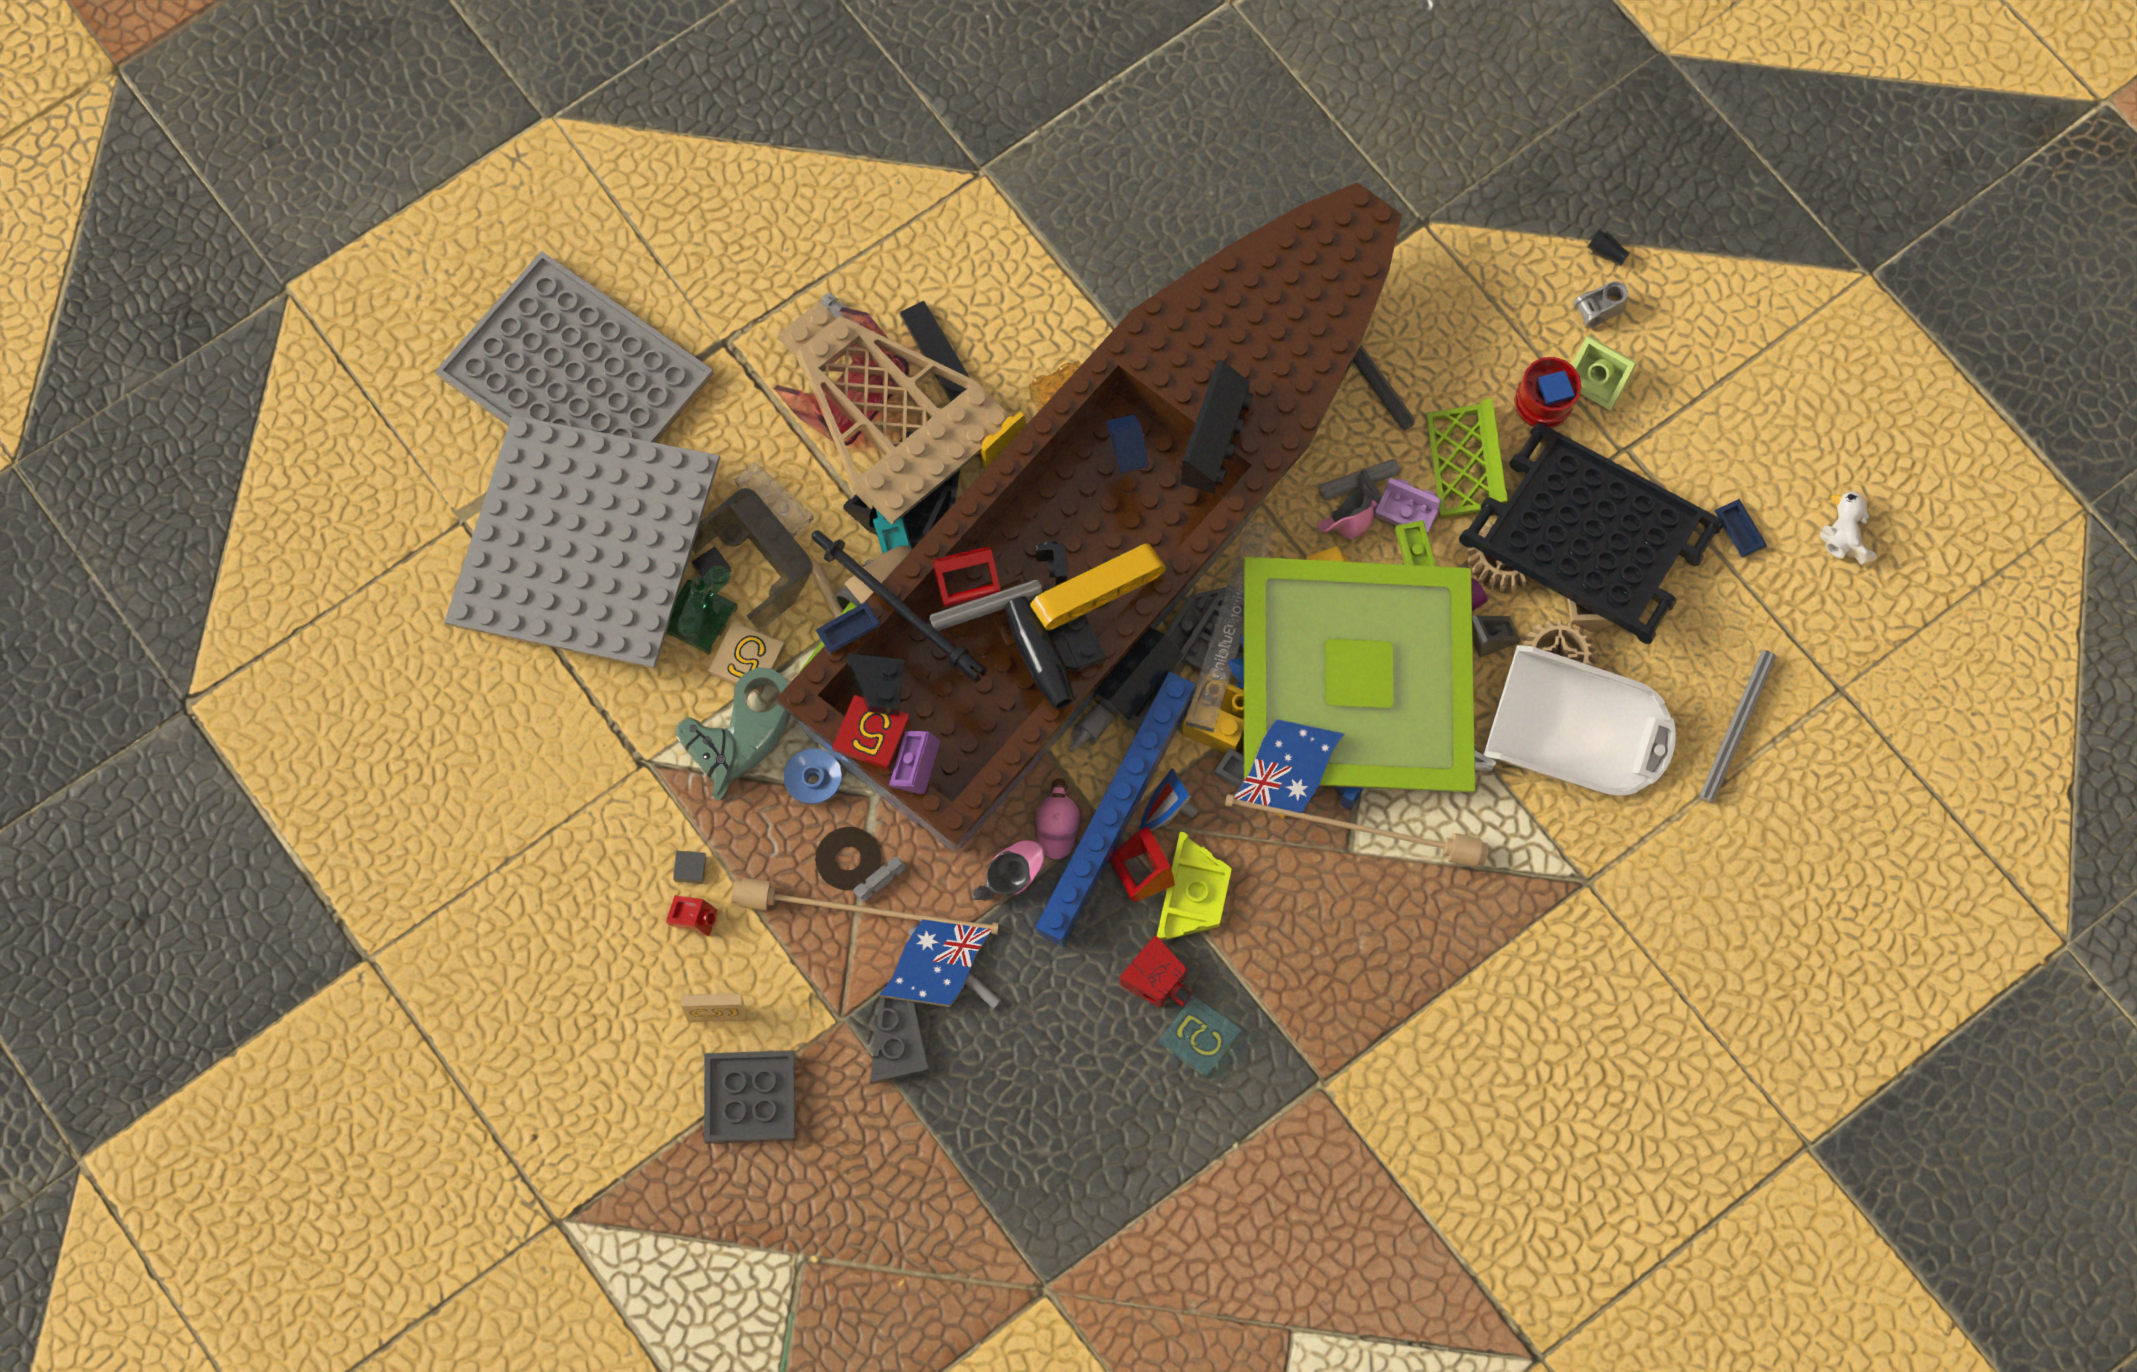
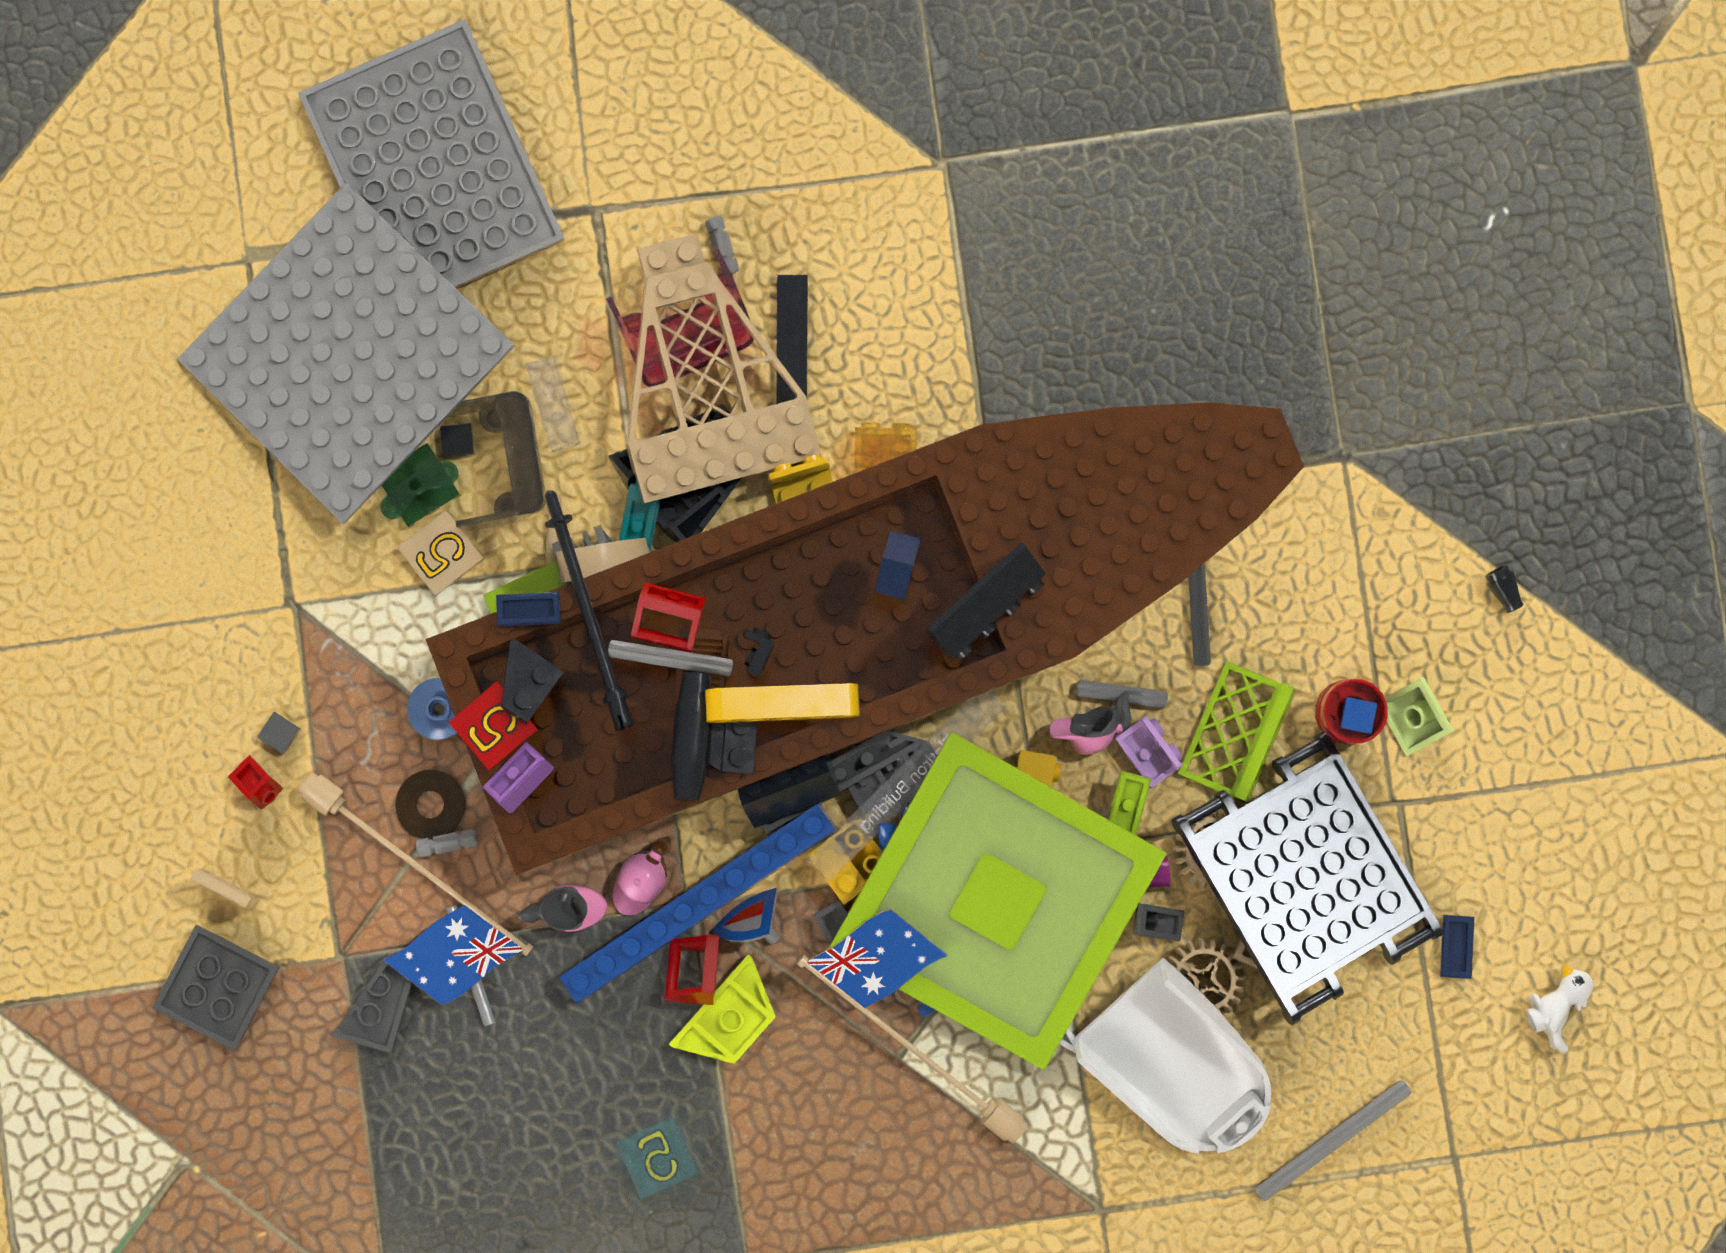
camera: 25 degrees right, 15 degrees up
(748, 740) = (399, 639): sand green animal -> none
(1090, 728) = (719, 808): light grey piece -> none
(1156, 975) = (649, 1081): red torso -> none
(1596, 305) = (1460, 643): light grey piece -> none

